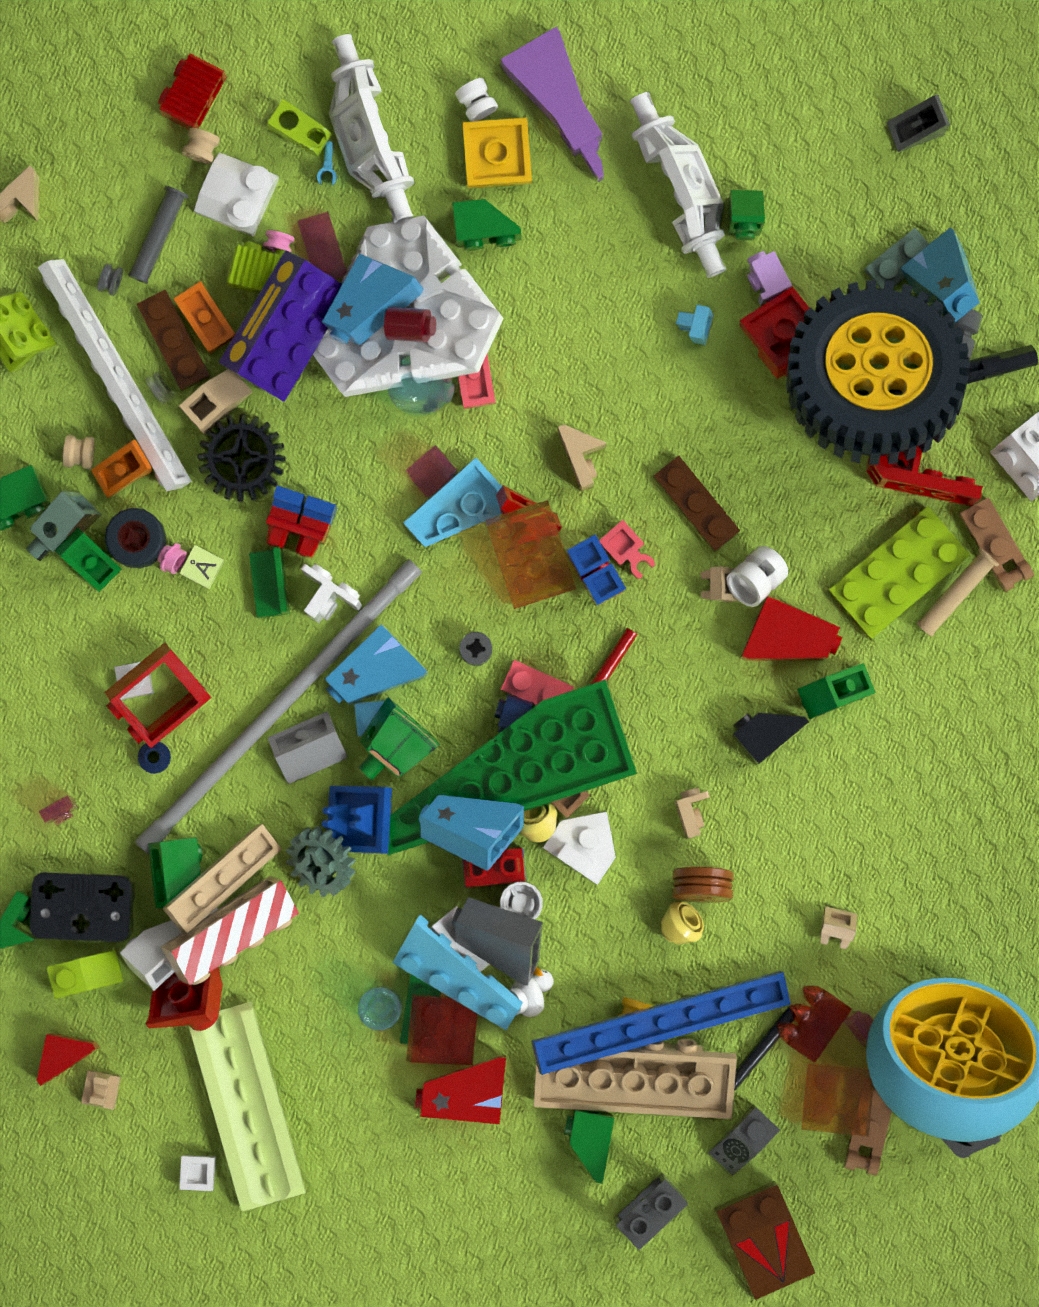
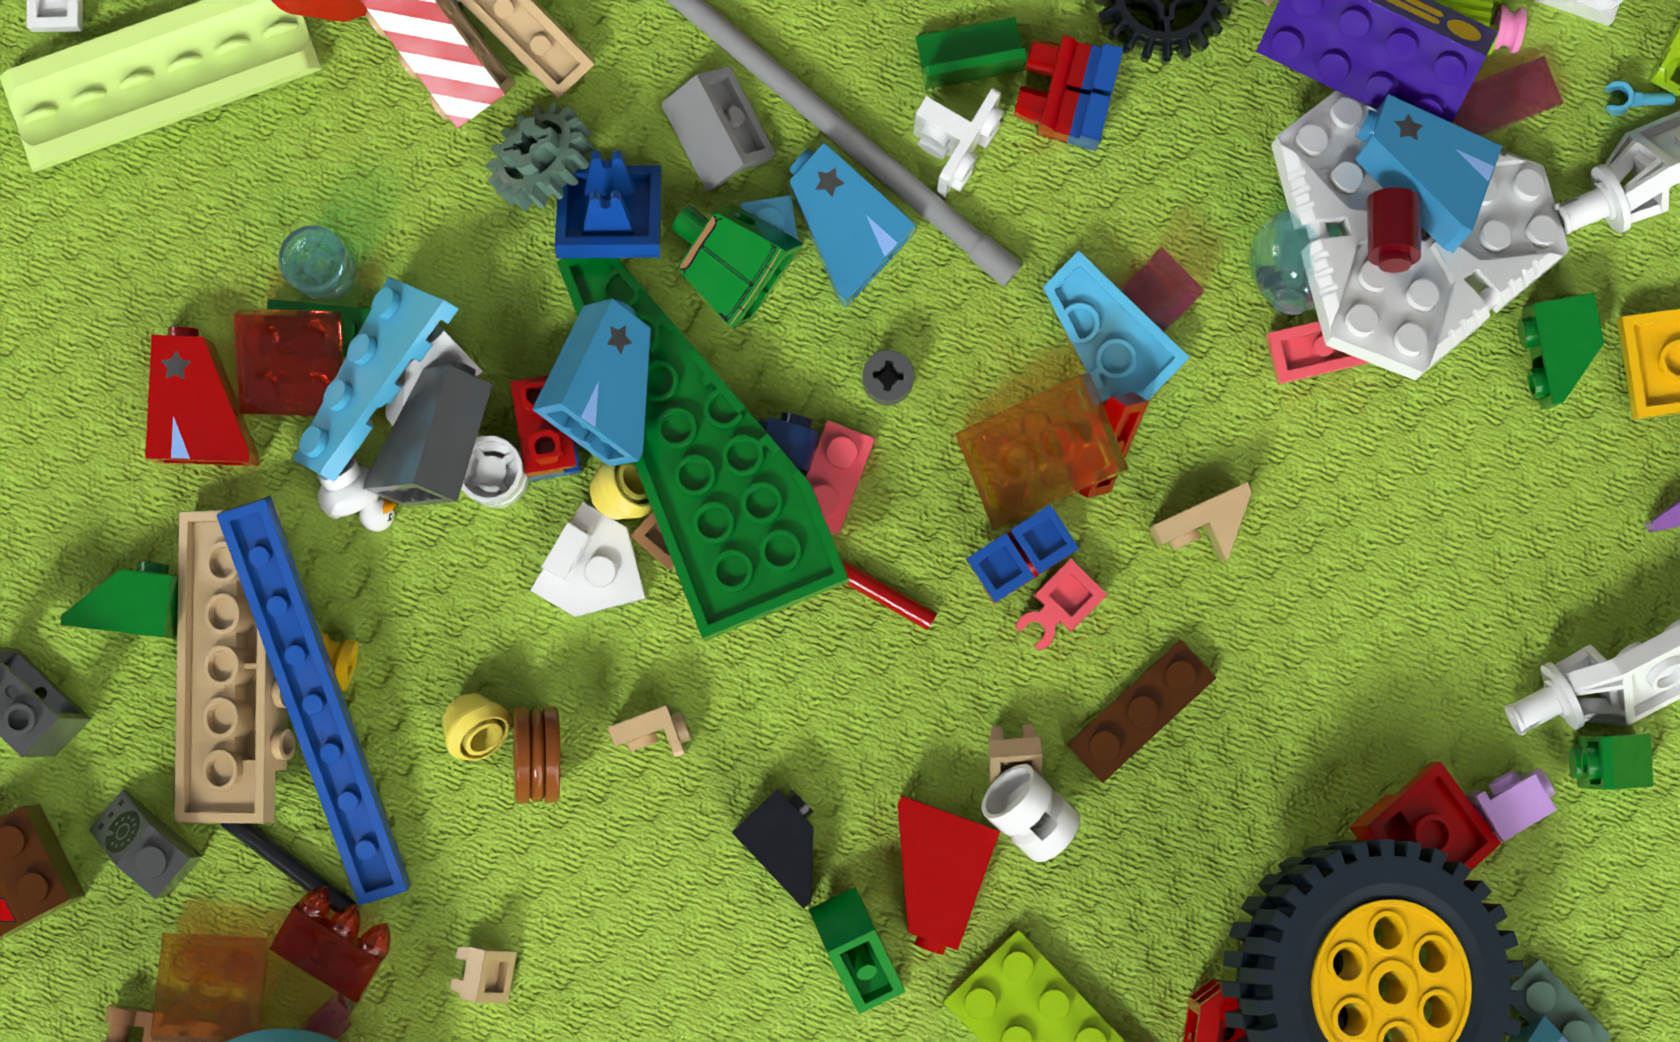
camera: 85 degrees right, 0 degrees up
(697, 324) = (1428, 694): medium azure tile -> none

